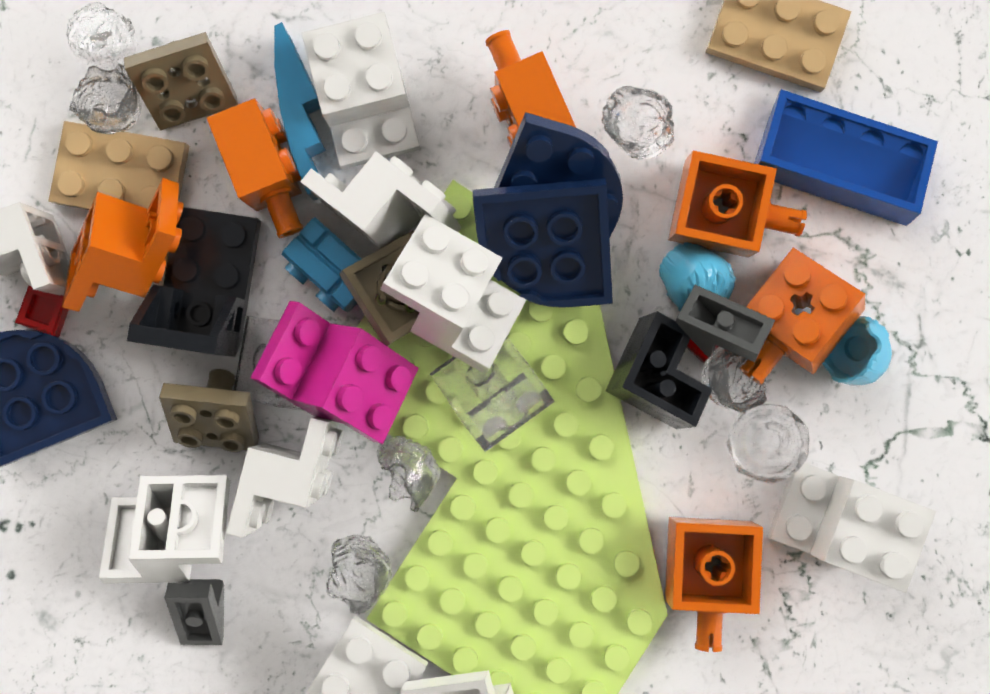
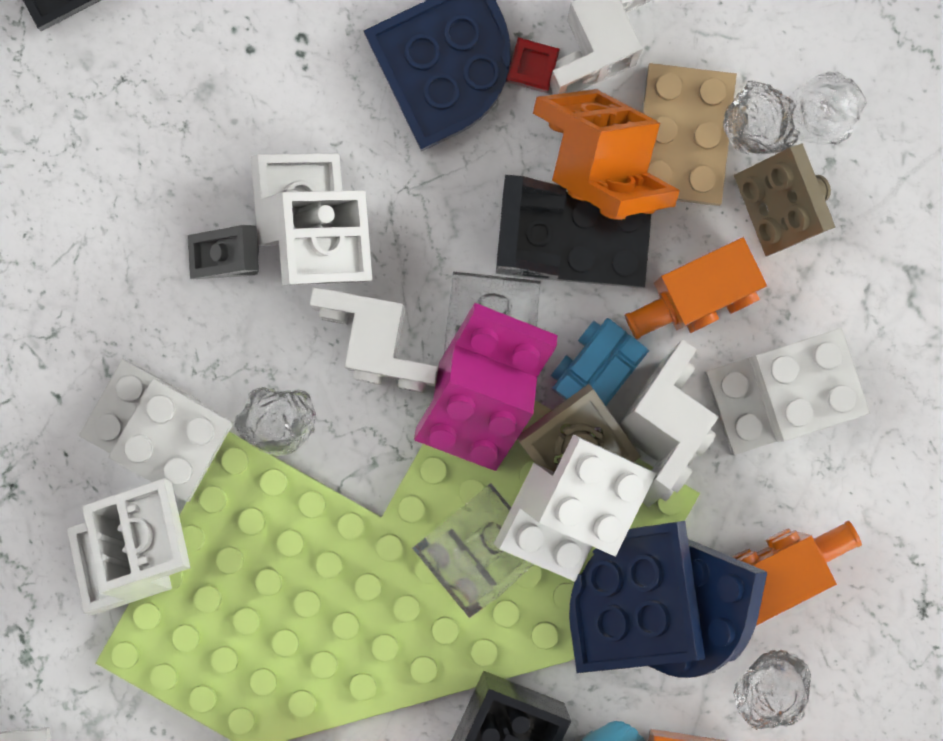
camera: 80 degrees right, 0 degrees up
(210, 414) = (433, 255): dark tan plate -> none
(296, 102) = (775, 321): dark azure slope -> none
(411, 469) = (387, 469): clear hair -> none

